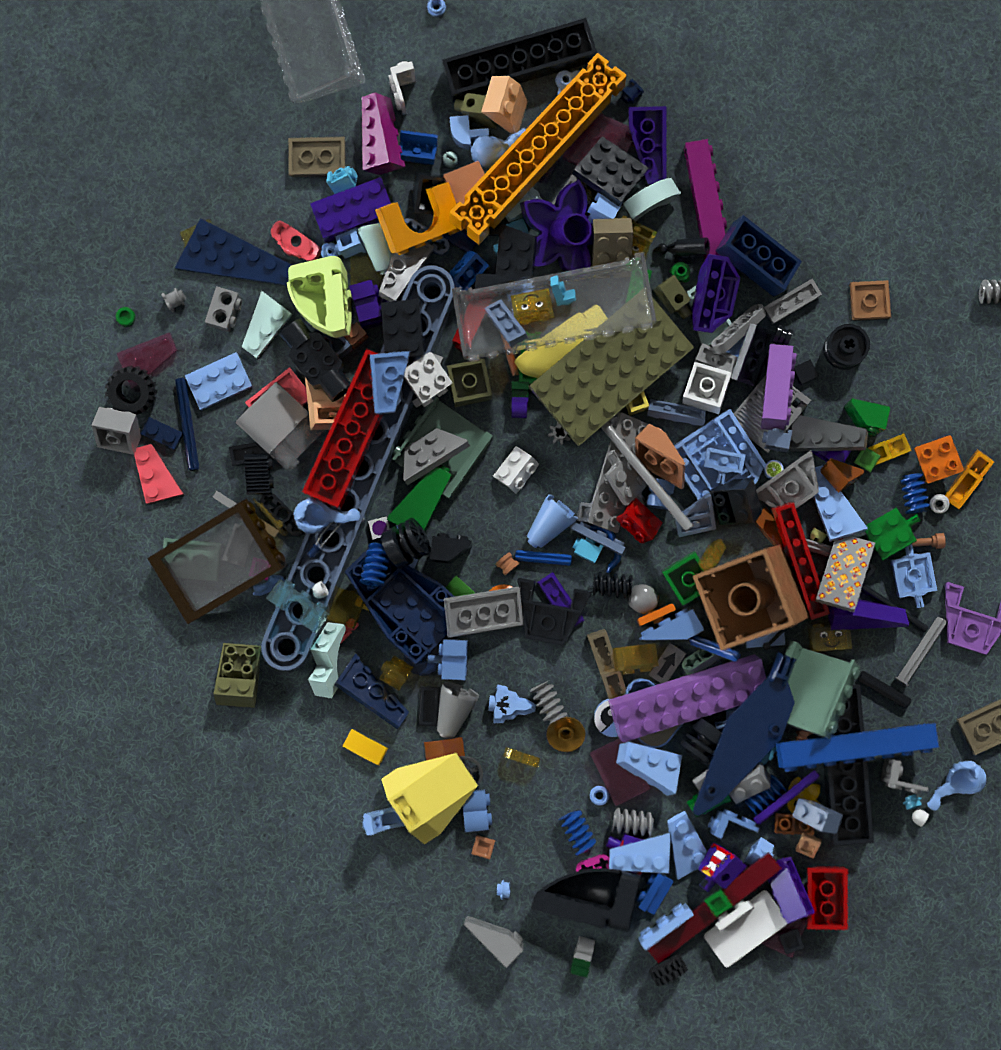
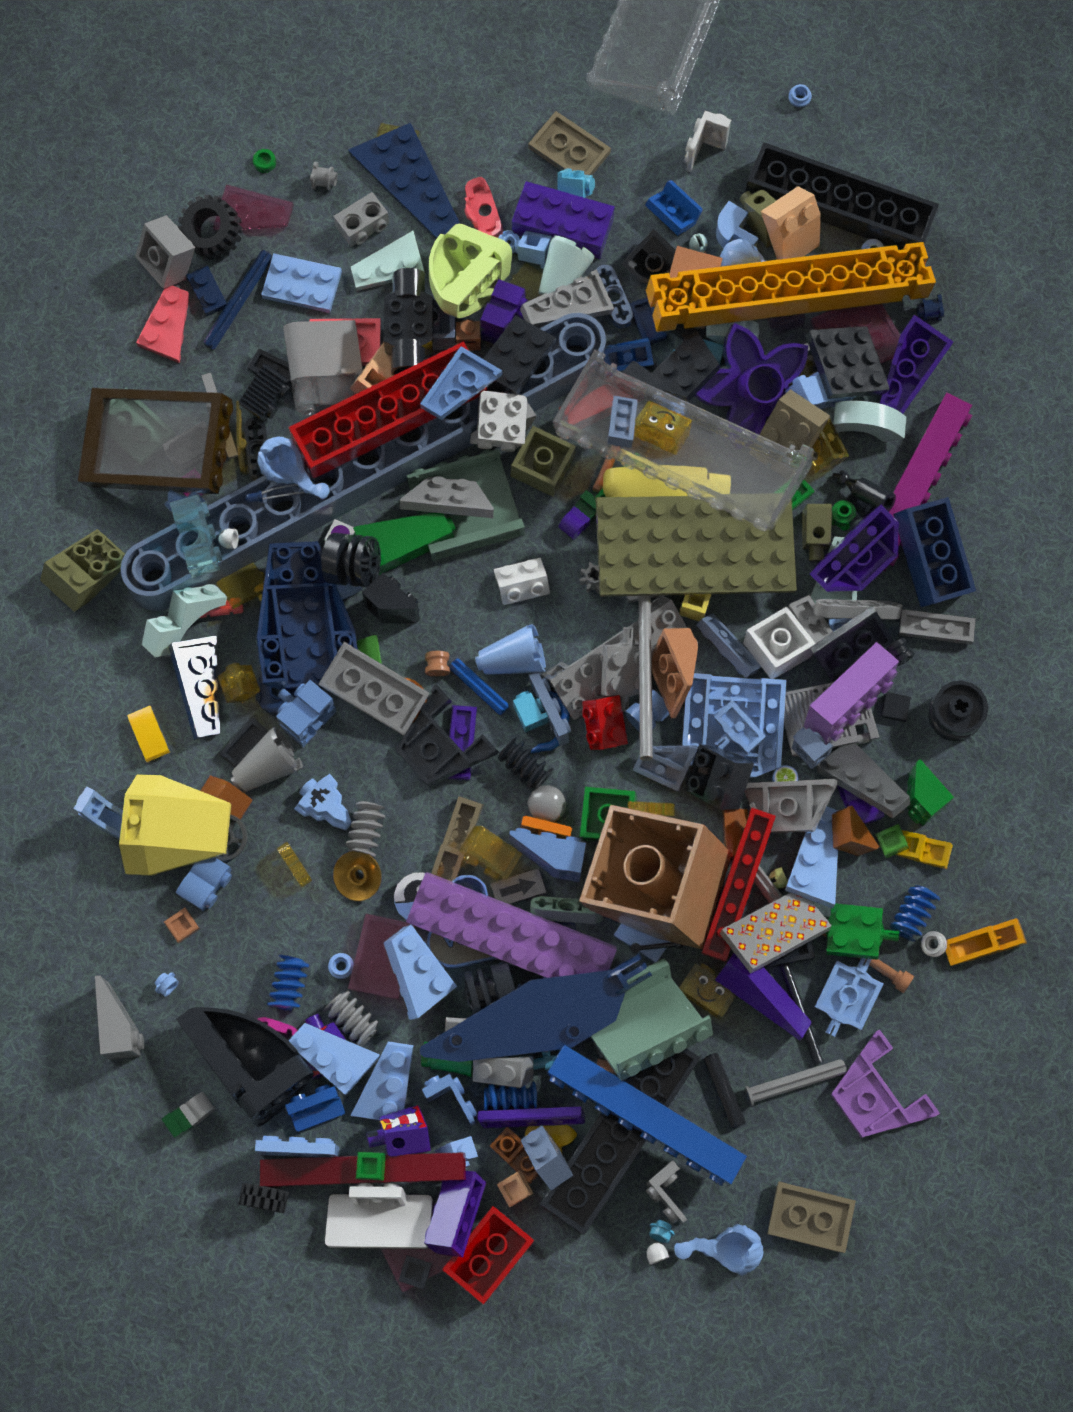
camera: 30 degrees right, 10 degrees down
(374, 565) = (301, 557): blue piece -> none
(379, 136) = (645, 169): magenta wedge -> none
(401, 237) = (587, 271): light orange arch -> none
(561, 295) = (700, 430): medium azure bracket -> none
(713, 647) = (573, 896): blue axle -> none
(870, 300) = (1020, 686): medium nougat tile -> none
(939, 459) = (966, 894): orange bracket -> none

